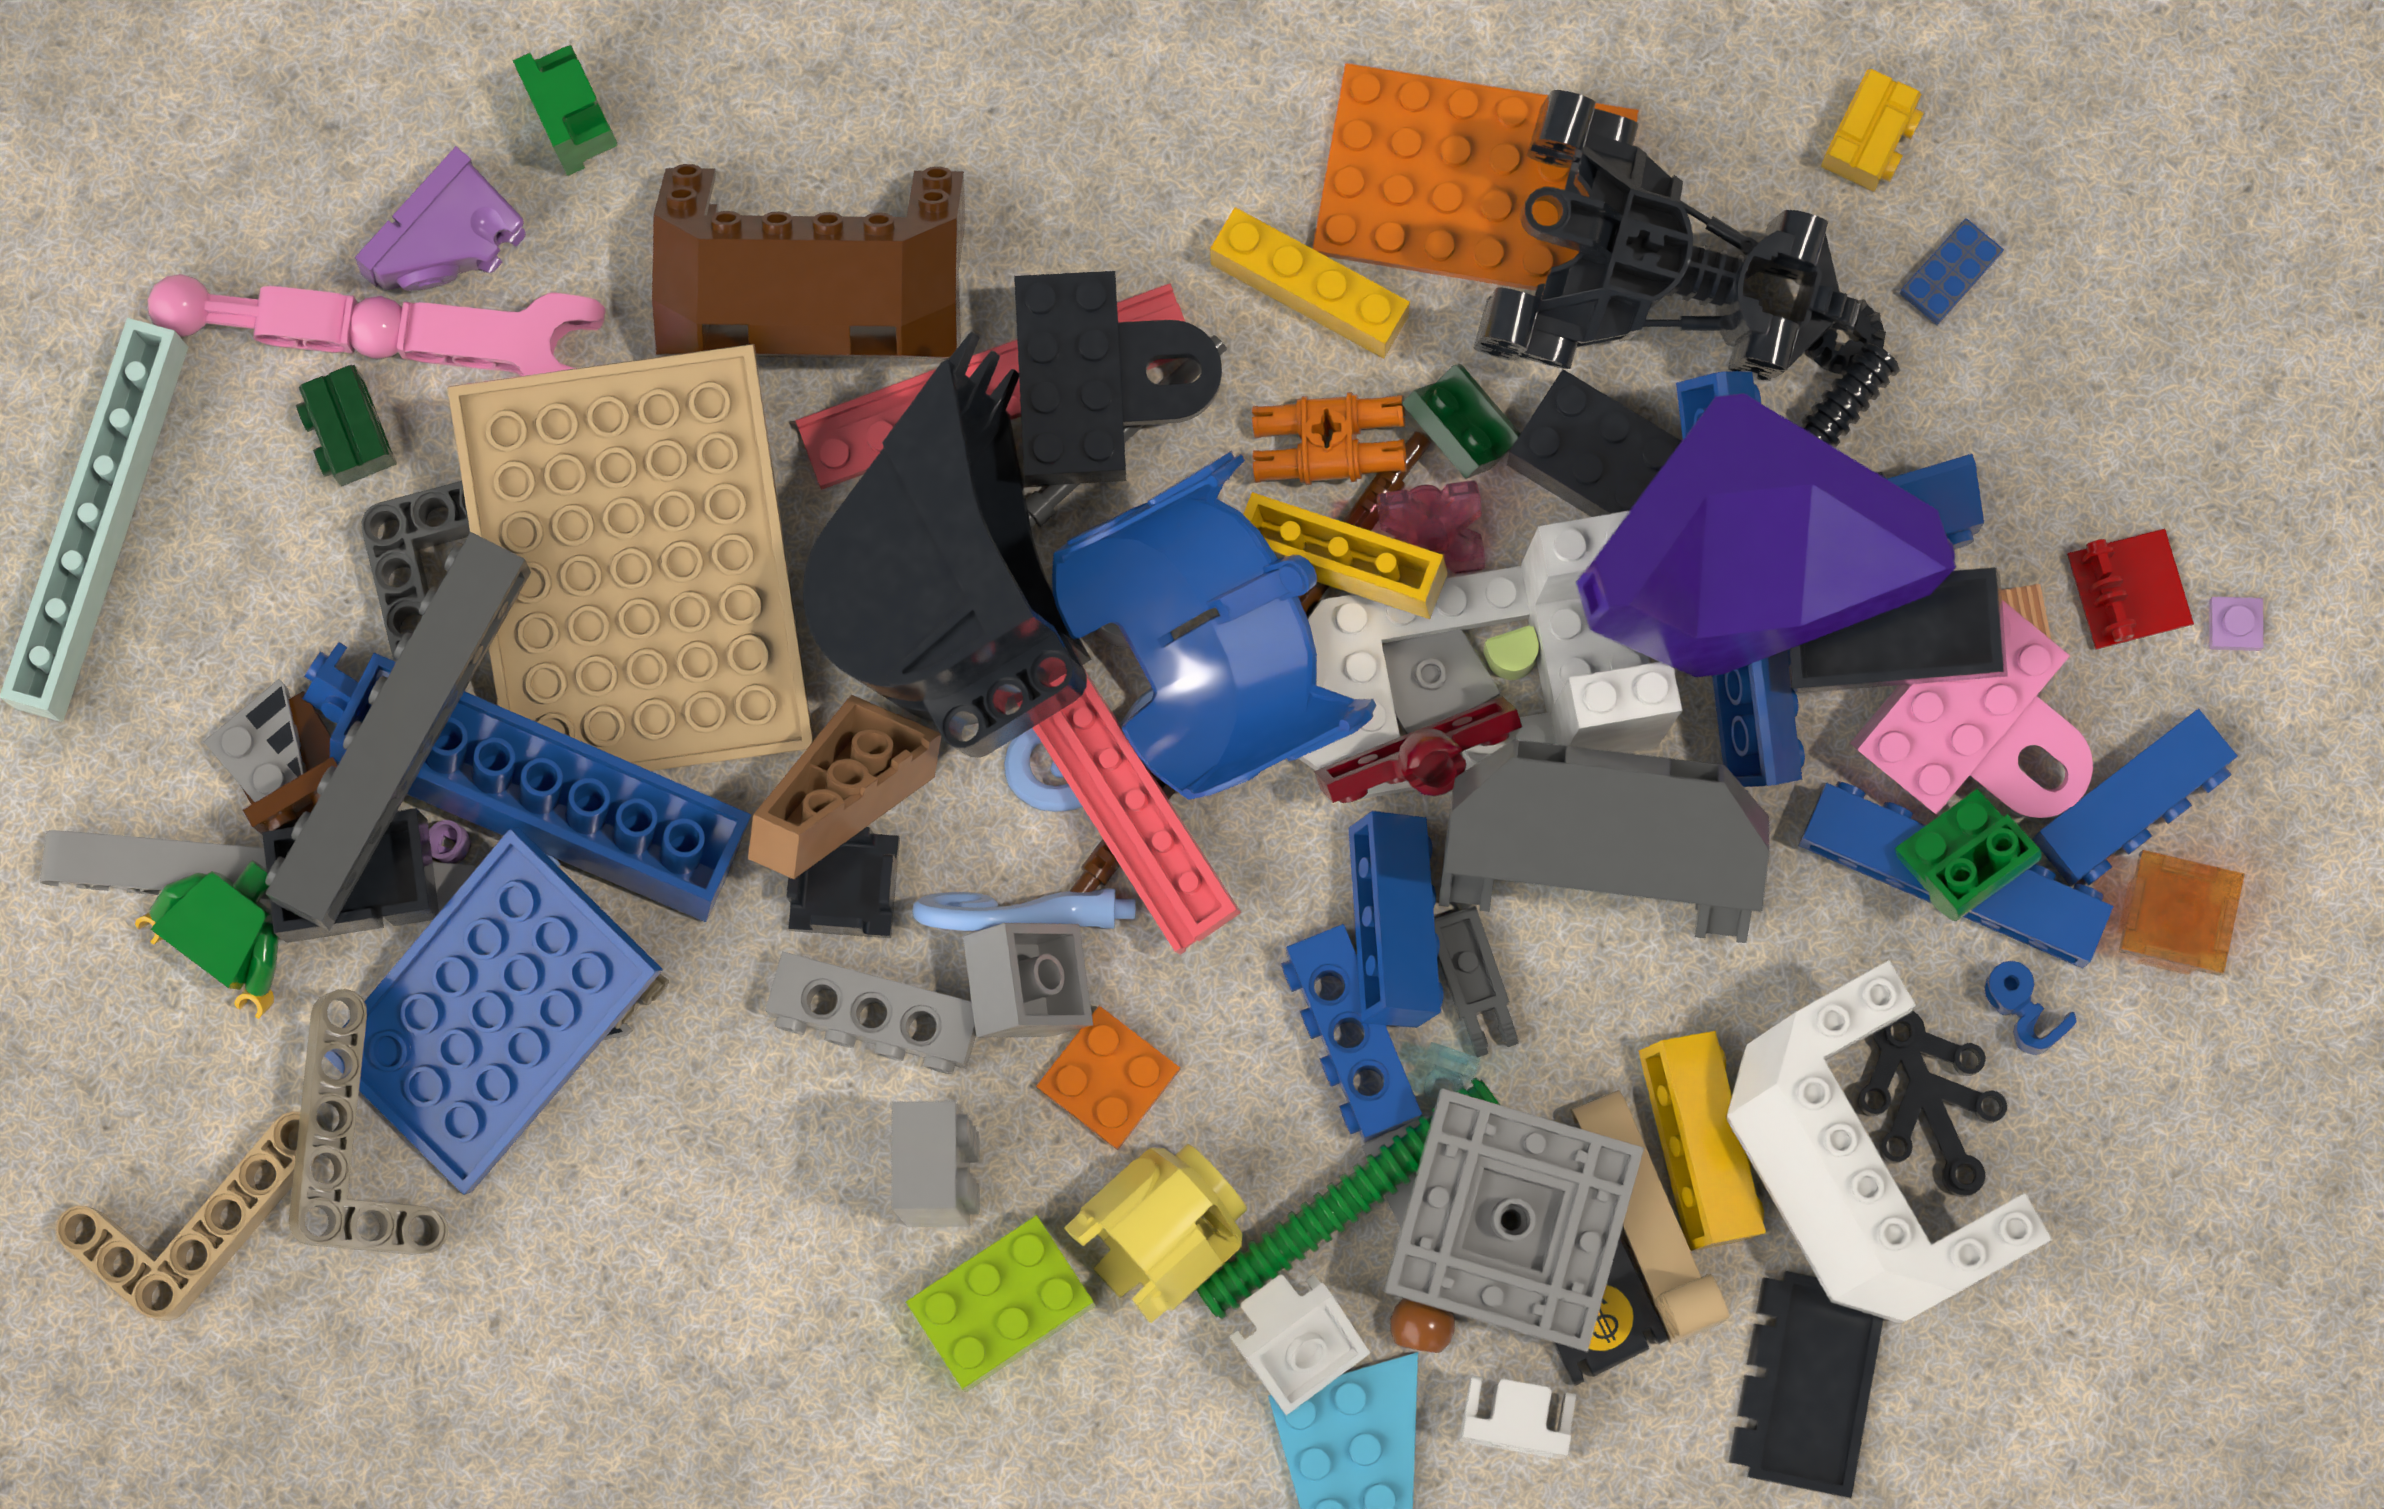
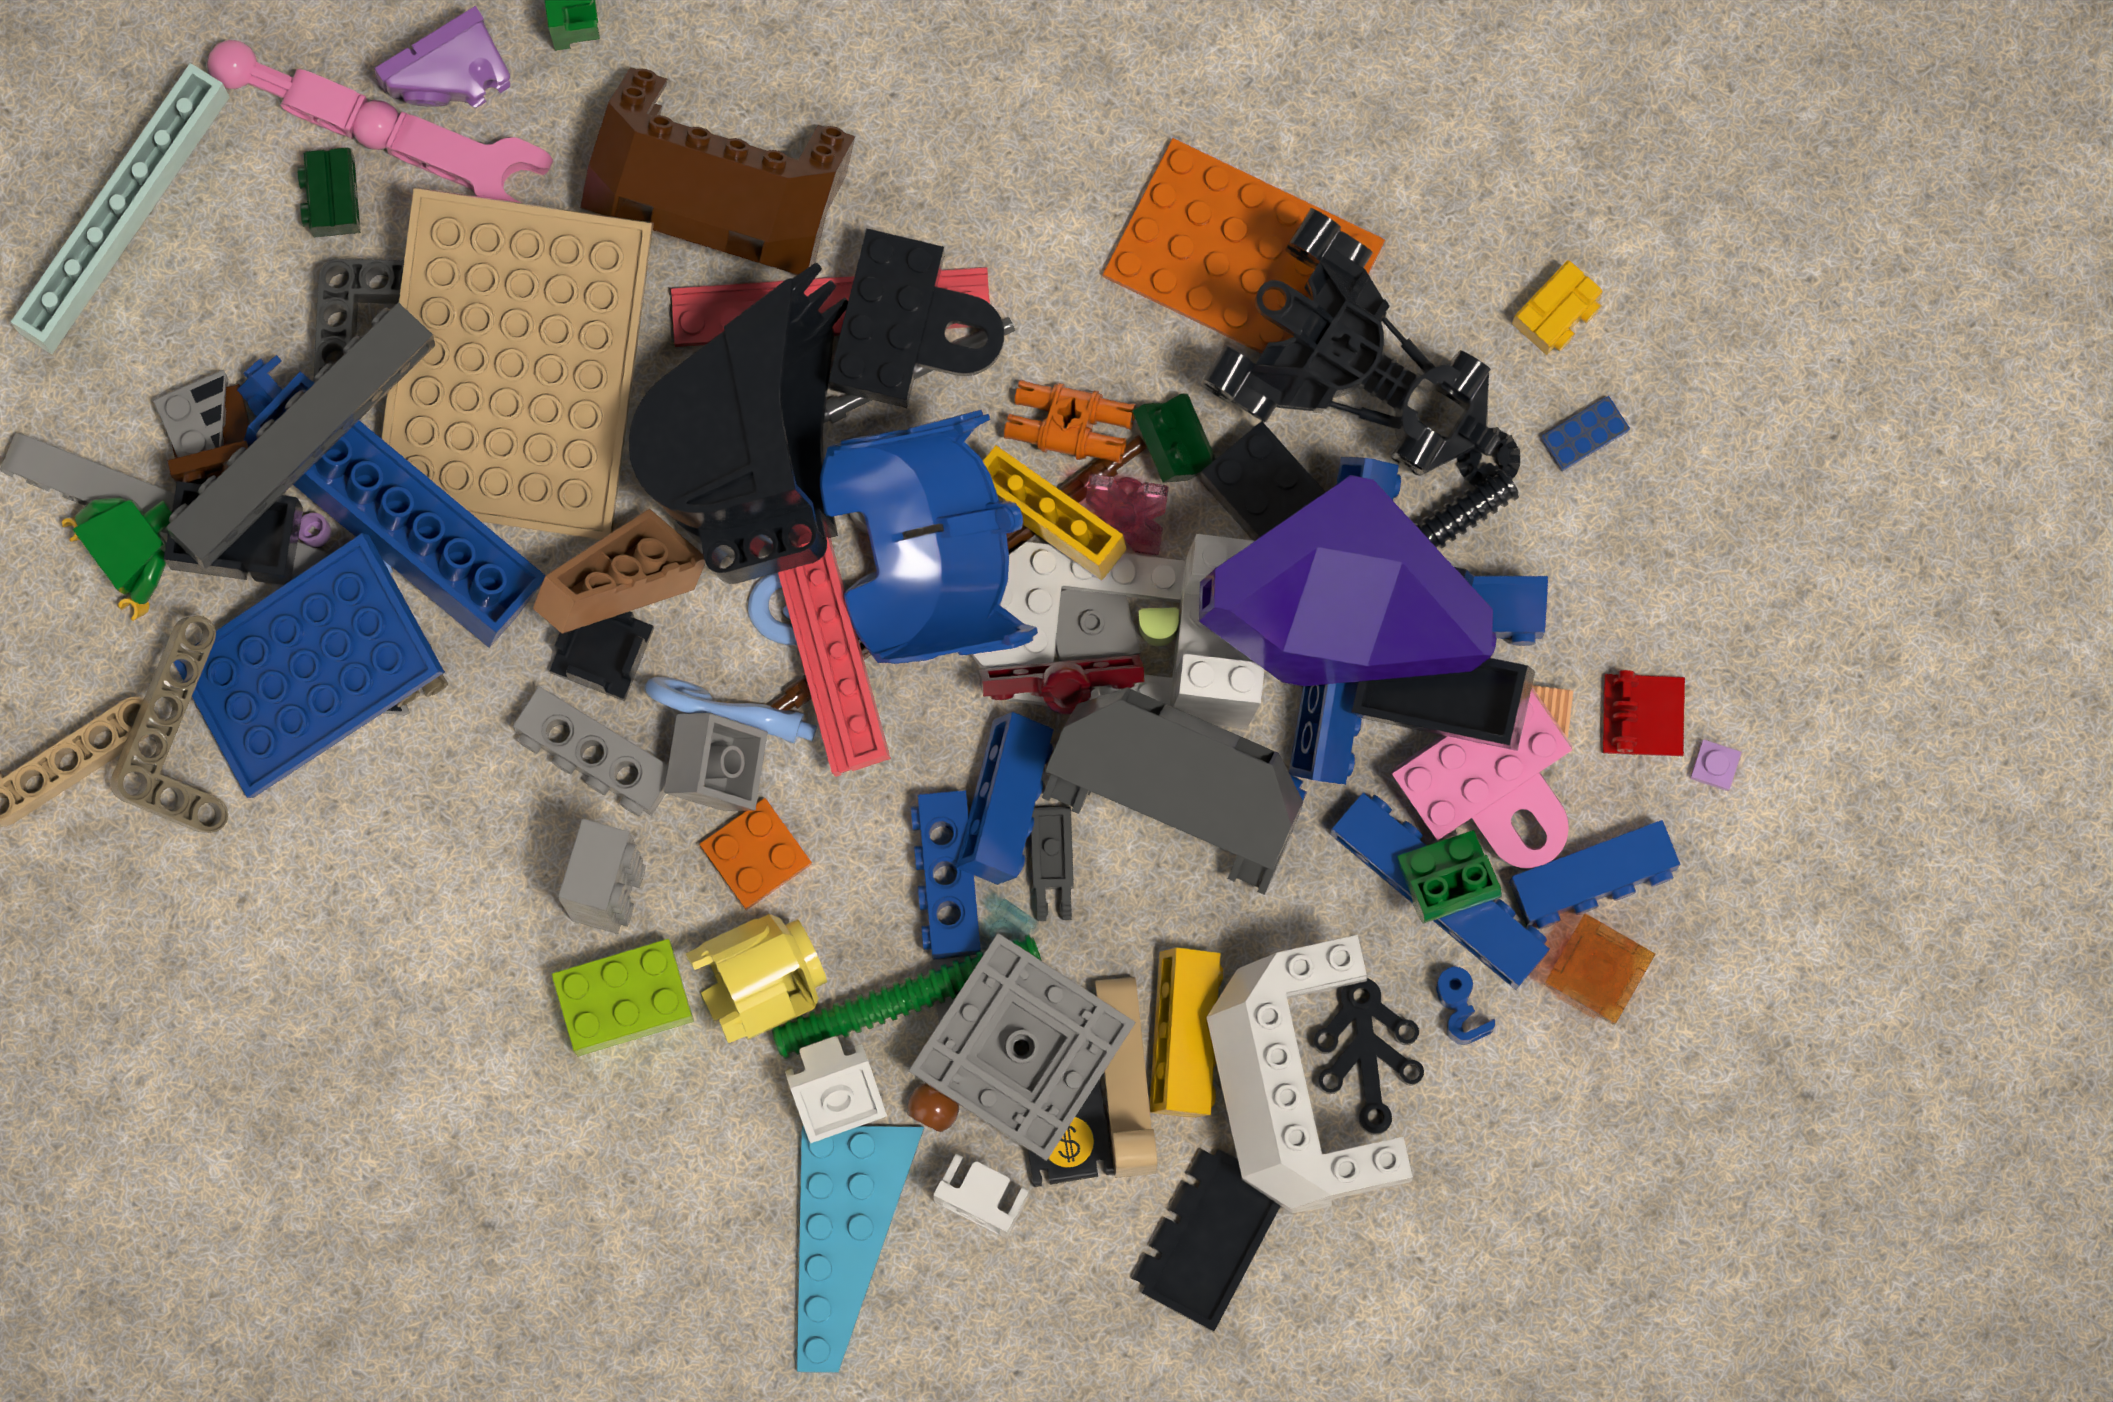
camera: 10 degrees right, 0 degrees up
(1309, 282) = (1092, 298): yellow brick -> none

